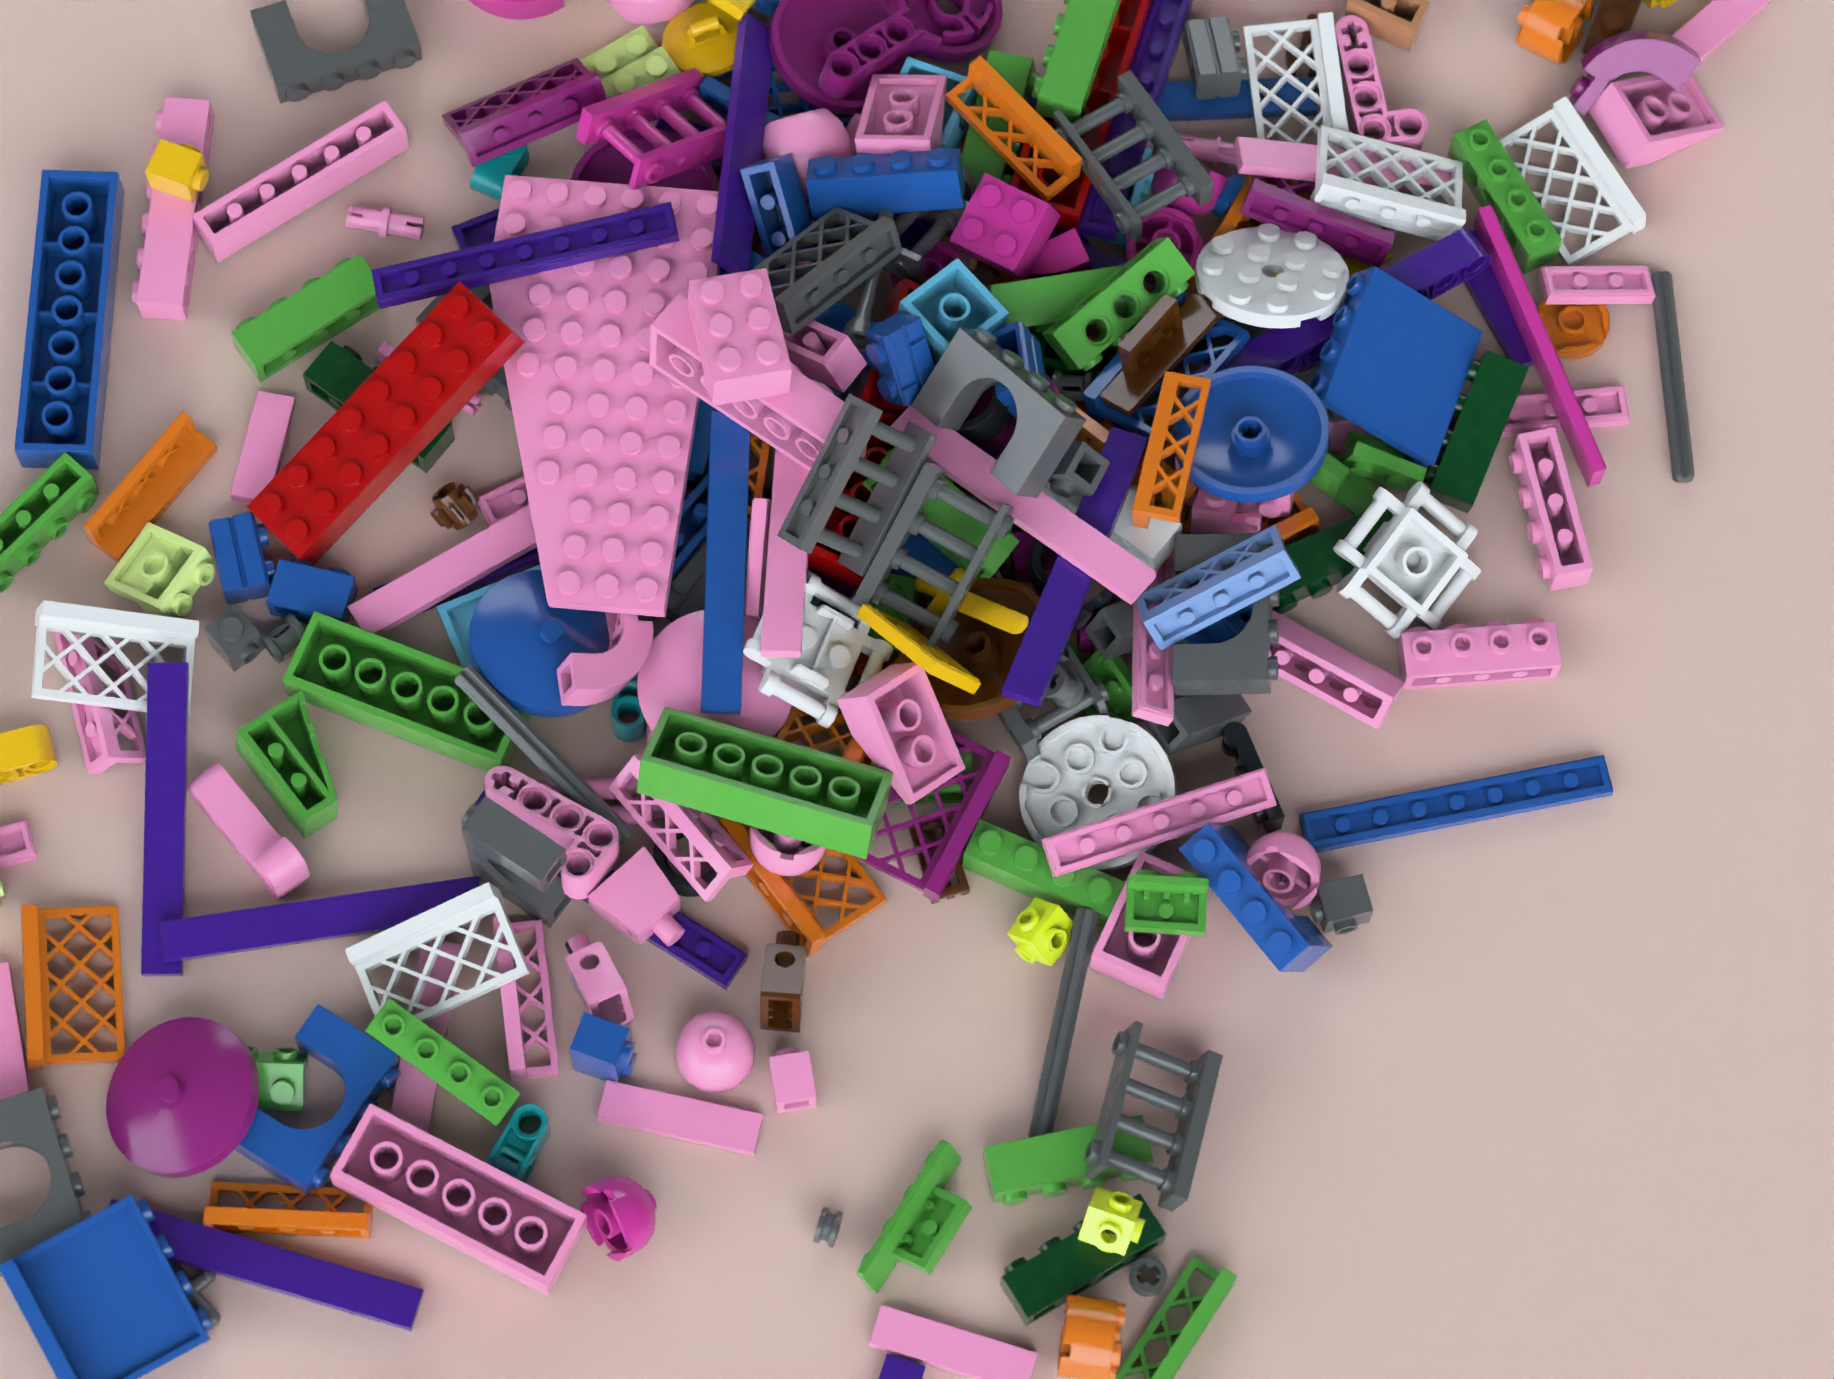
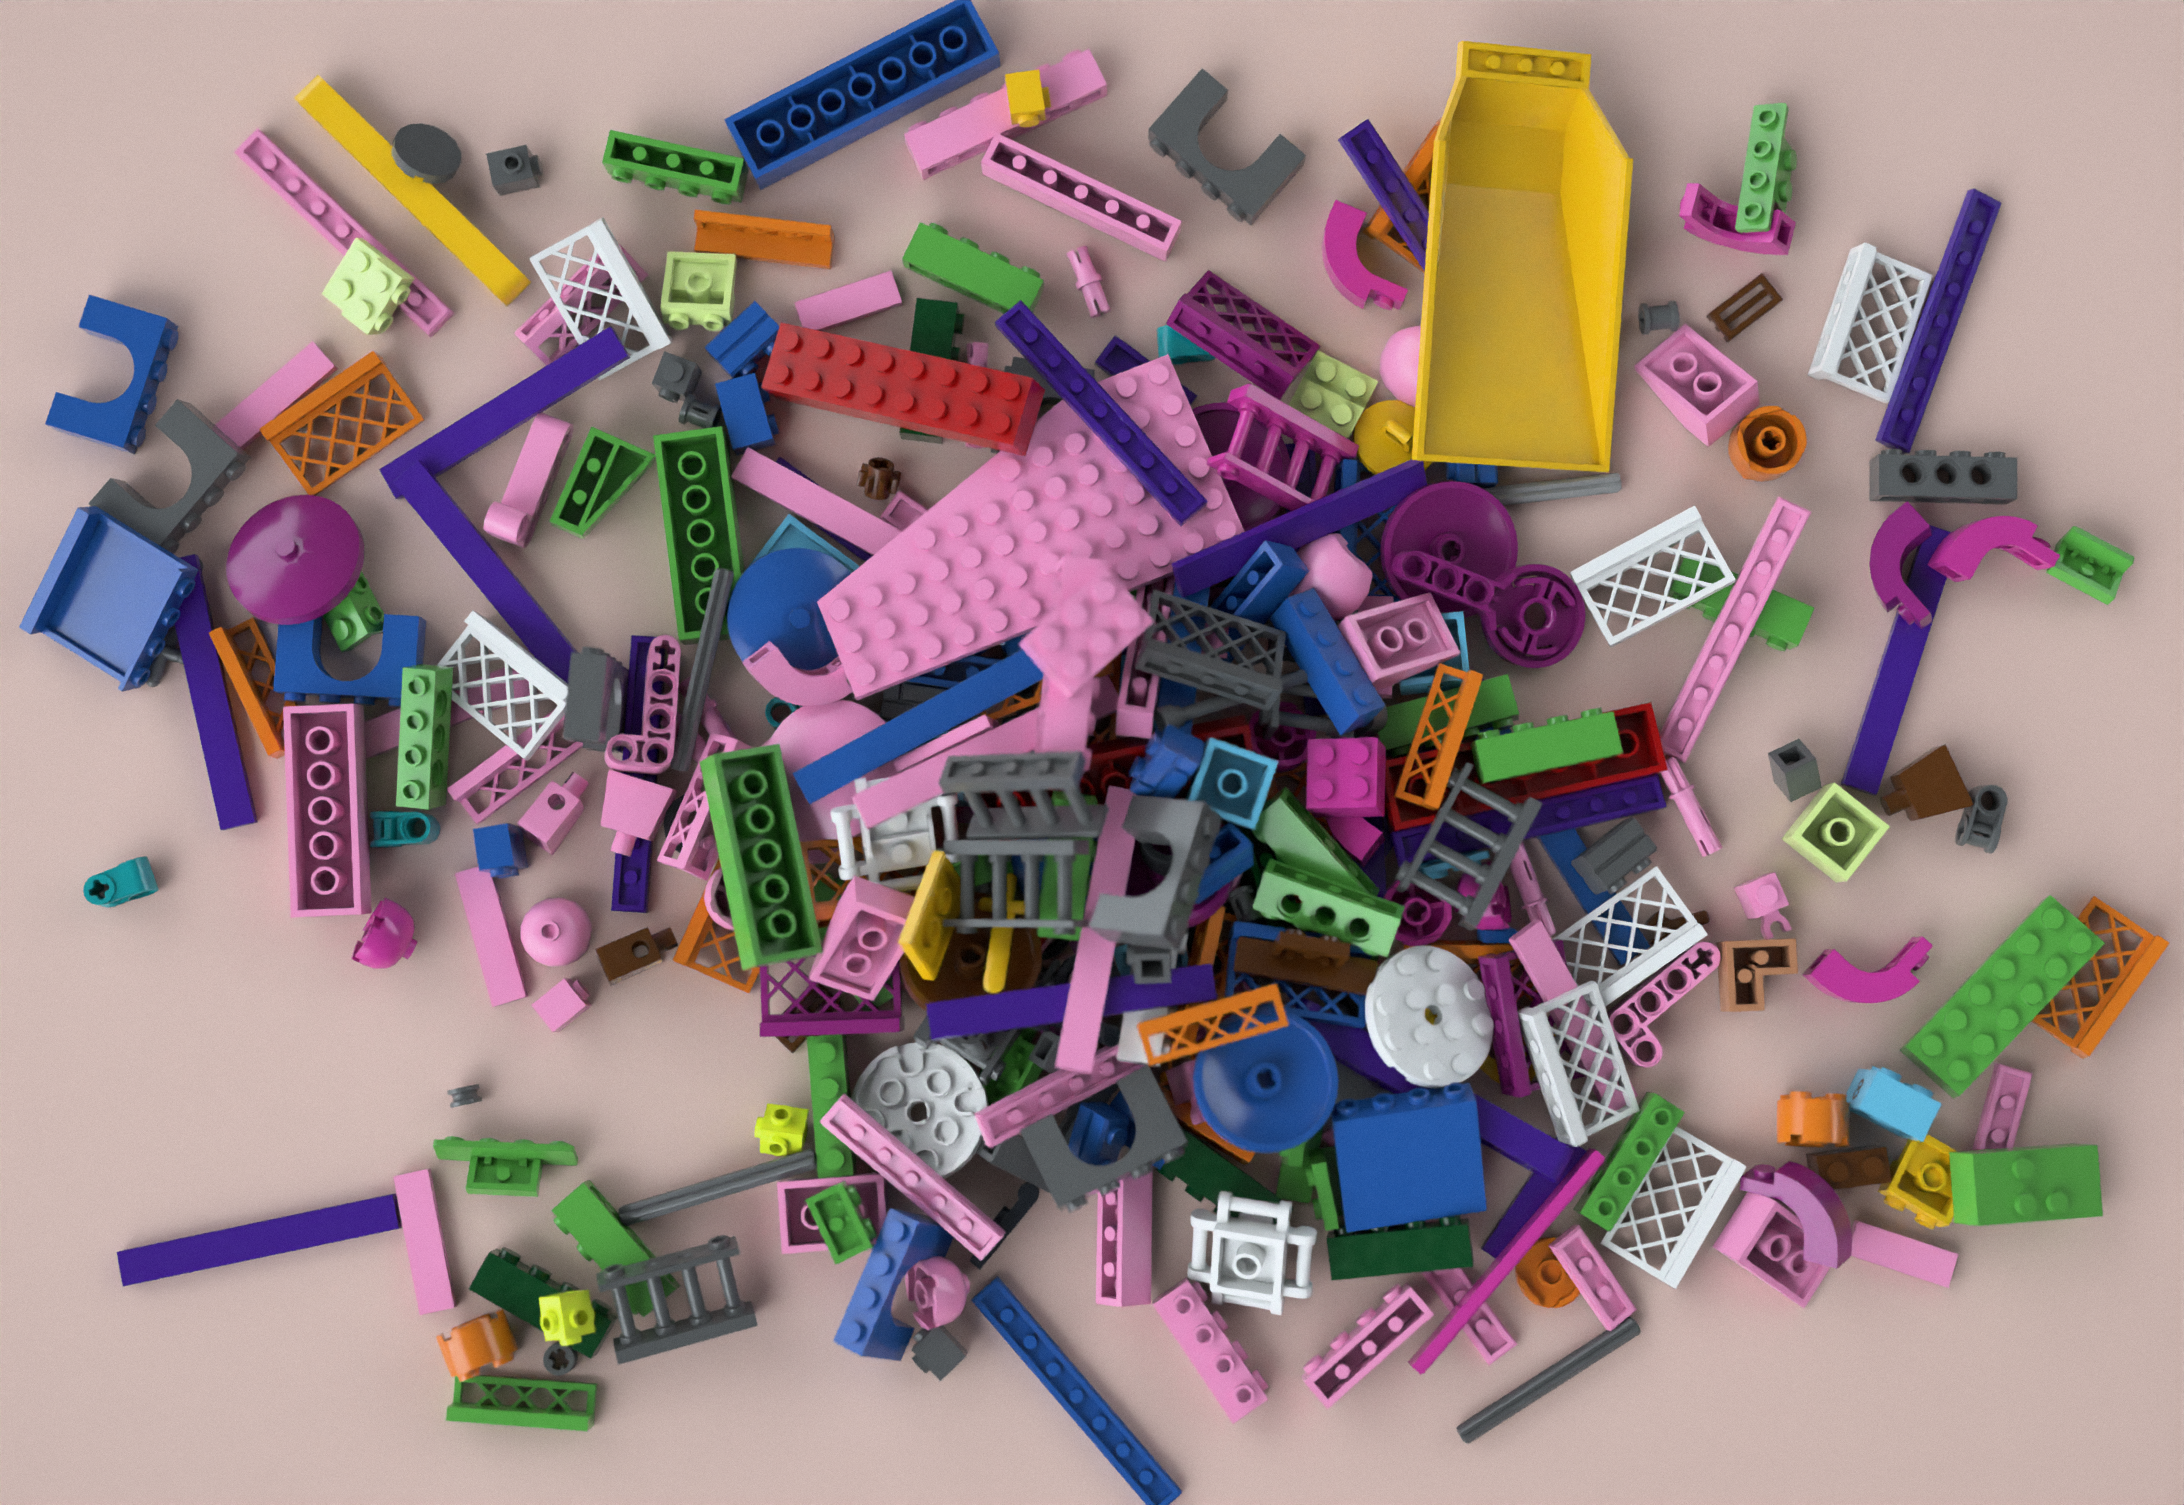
camera: 65 degrees right, 15 degrees up
(1218, 591) = (1108, 1130): medium blue fence -> none

